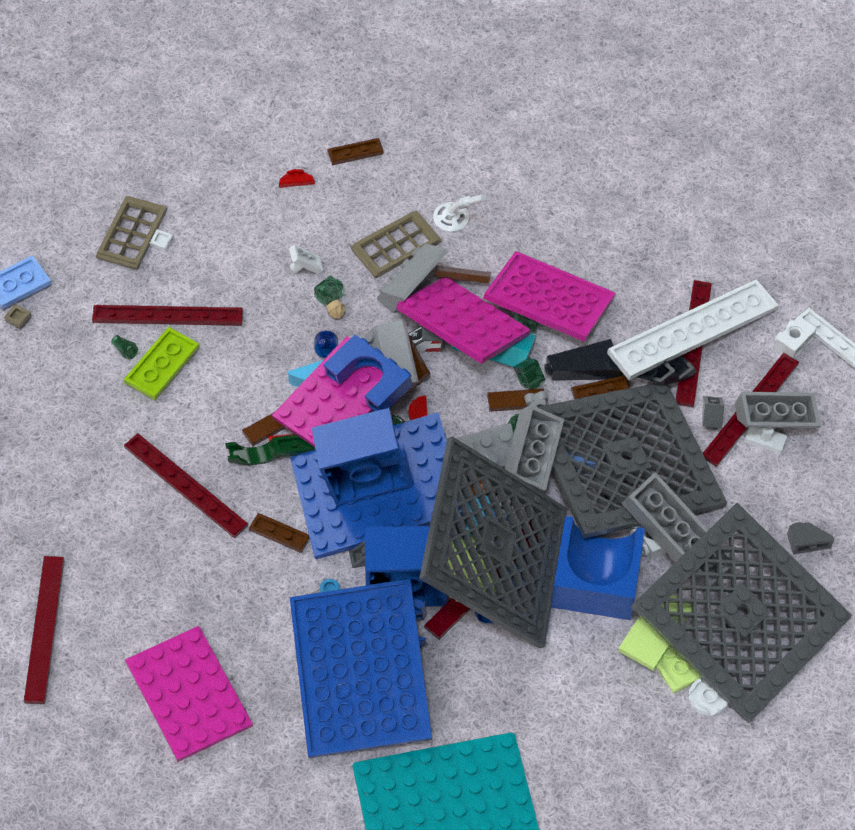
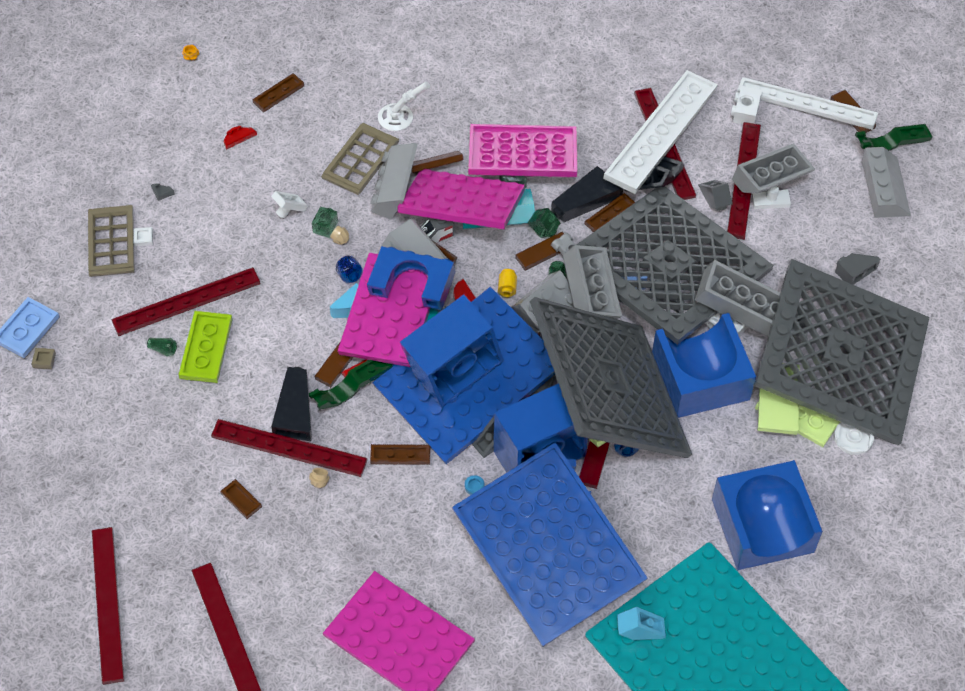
camera: 25 degrees left, 0 degrees up
(119, 512) = (241, 499): none -> reddish brown tile
(195, 522) = (319, 477): none -> tan plate
(200, 204) = (162, 191): none -> dark grey tile
(208, 449) = (293, 408): none -> black slope
(295, 82) = (190, 49): none -> light orange plate
(403, 777) = (641, 625): none -> medium azure slope
(464, 416) = (507, 283): none -> yellow brick
(574, 729) = (766, 515): none -> blue piece

